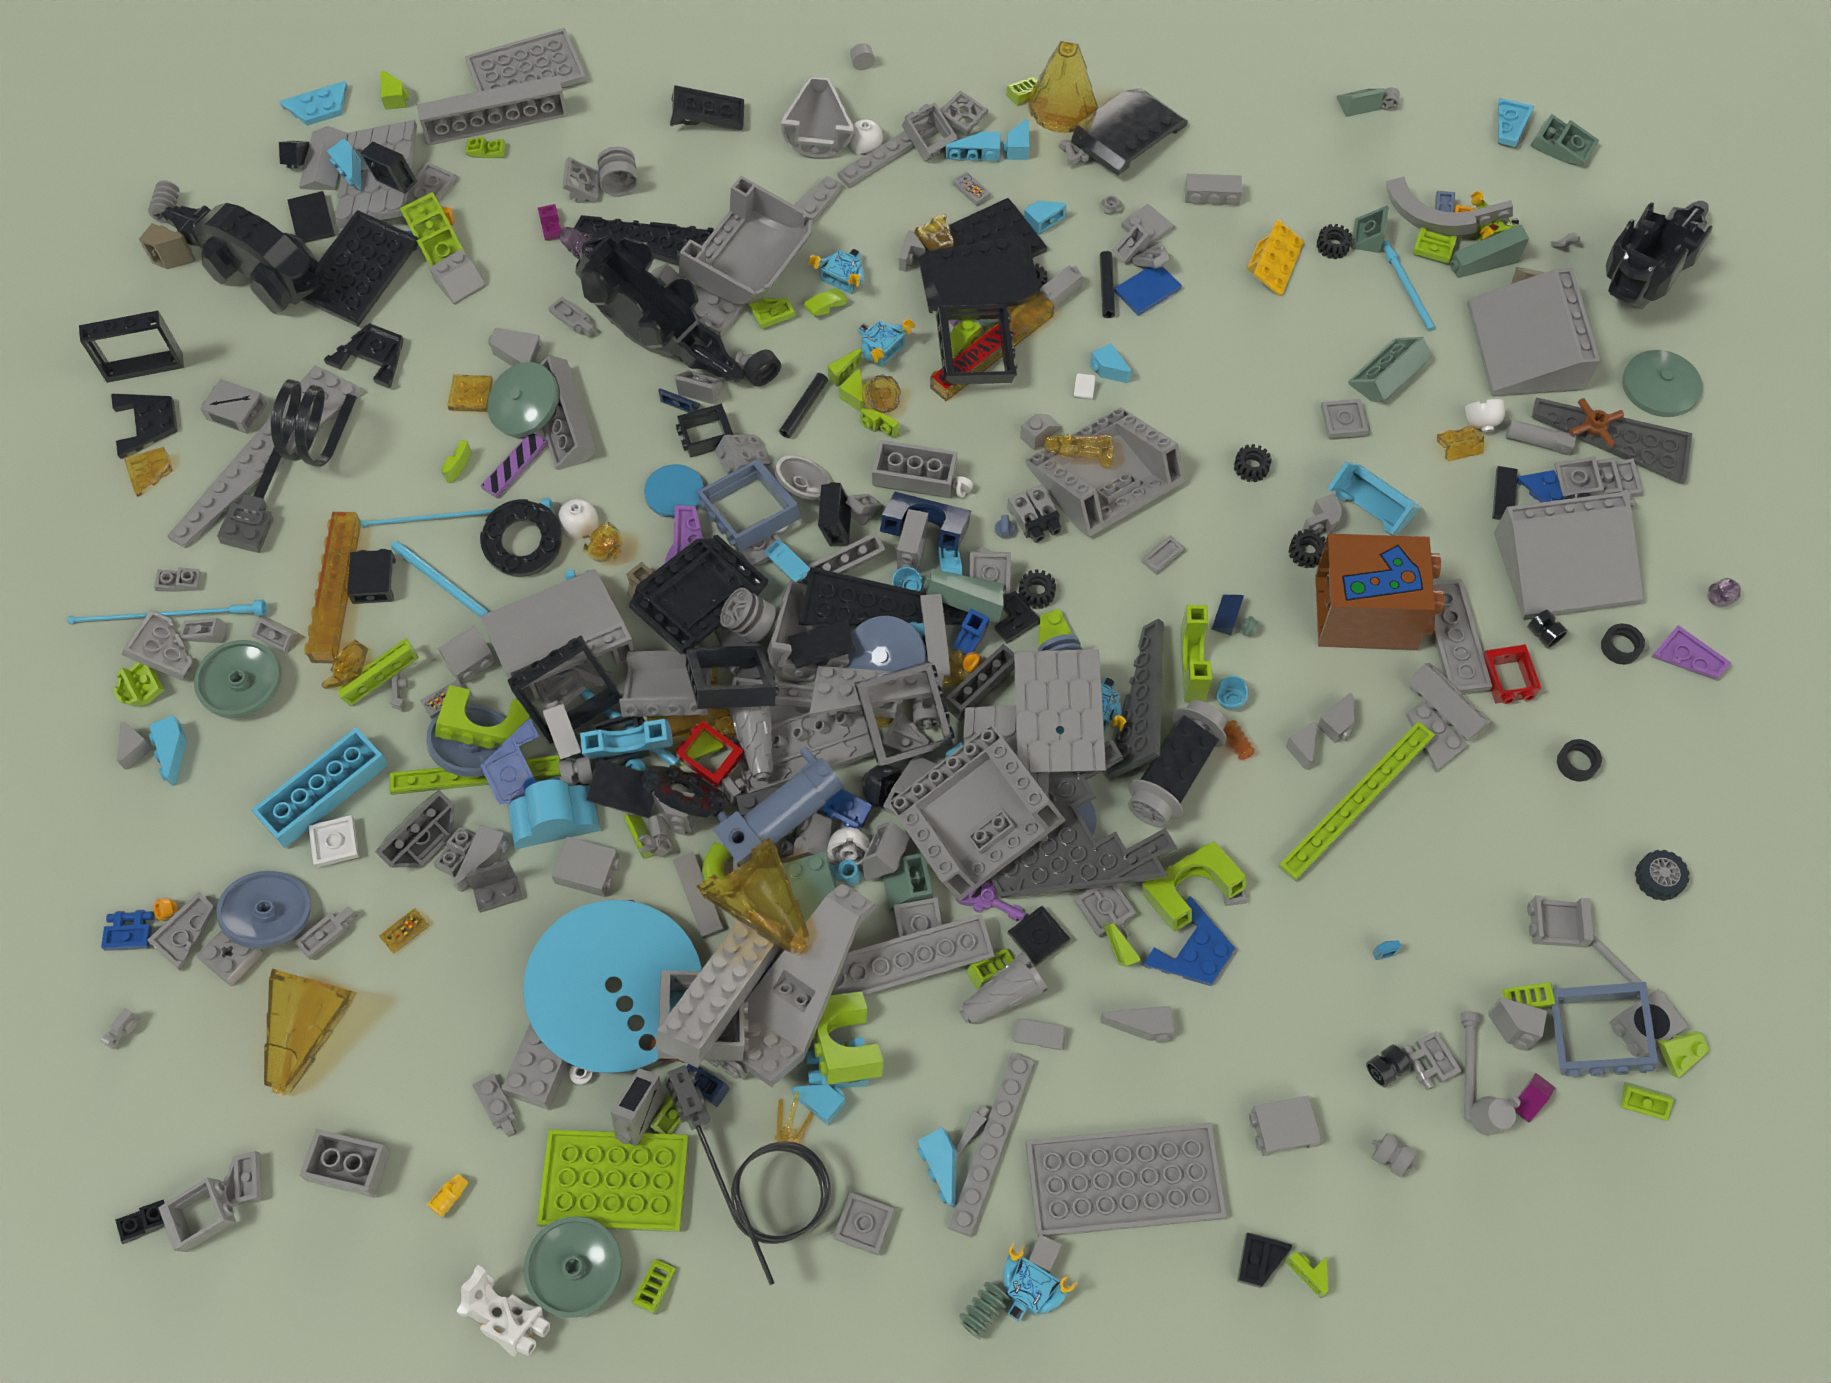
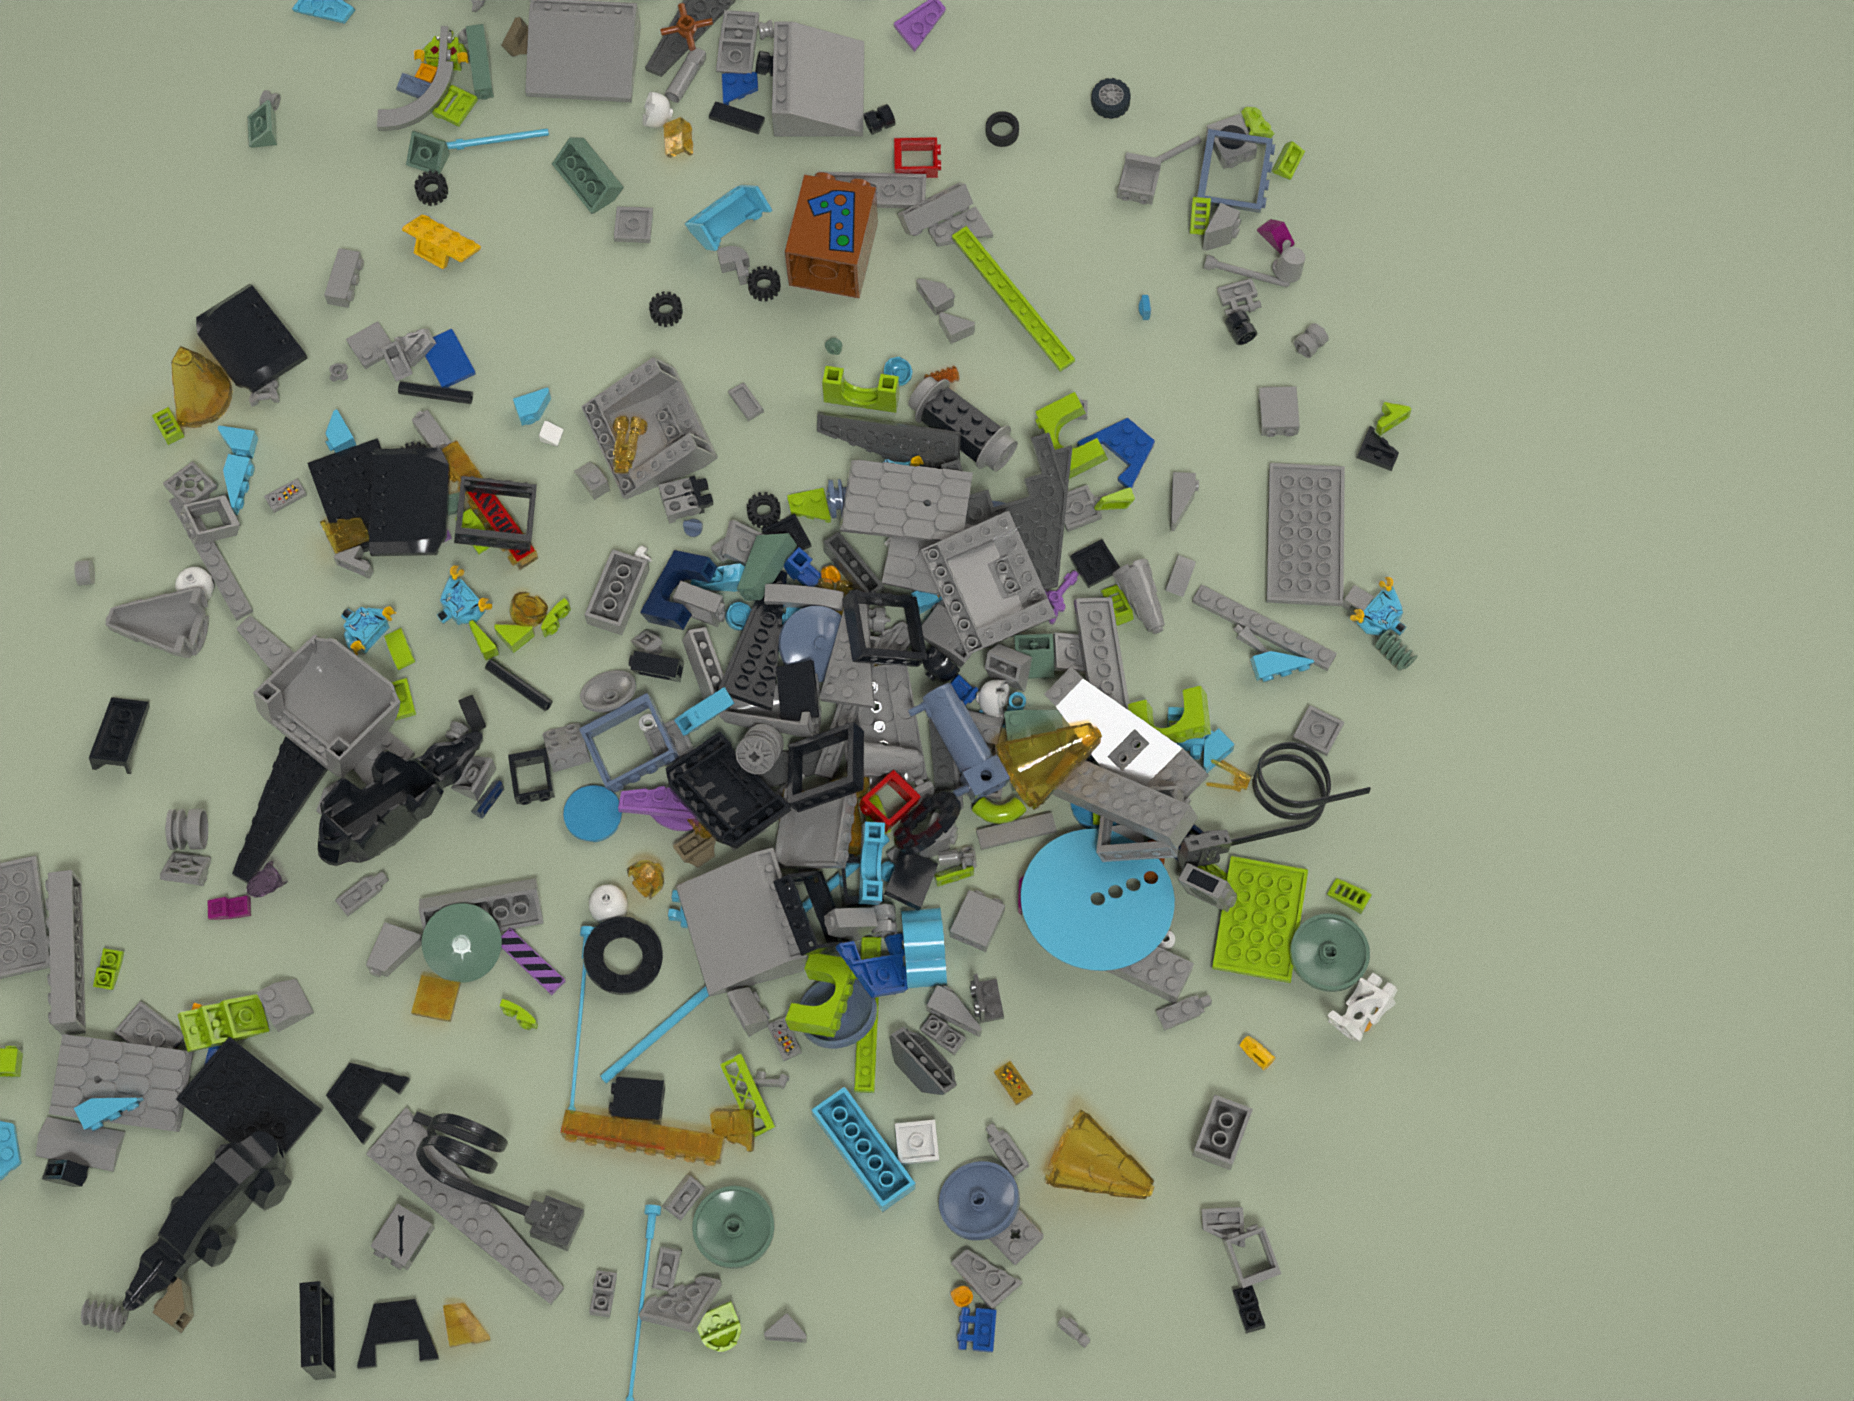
camera: 80 degrees left, 5 degrees up
(170, 745) = (789, 1294): medium azure slope -> none
(311, 217) = (160, 1158): black tile -> none
(389, 167) = (138, 1054): black window -> none
(1227, 613) = (815, 359): dark blue slope -> none
(1629, 632) = (902, 80): black tyre -> none

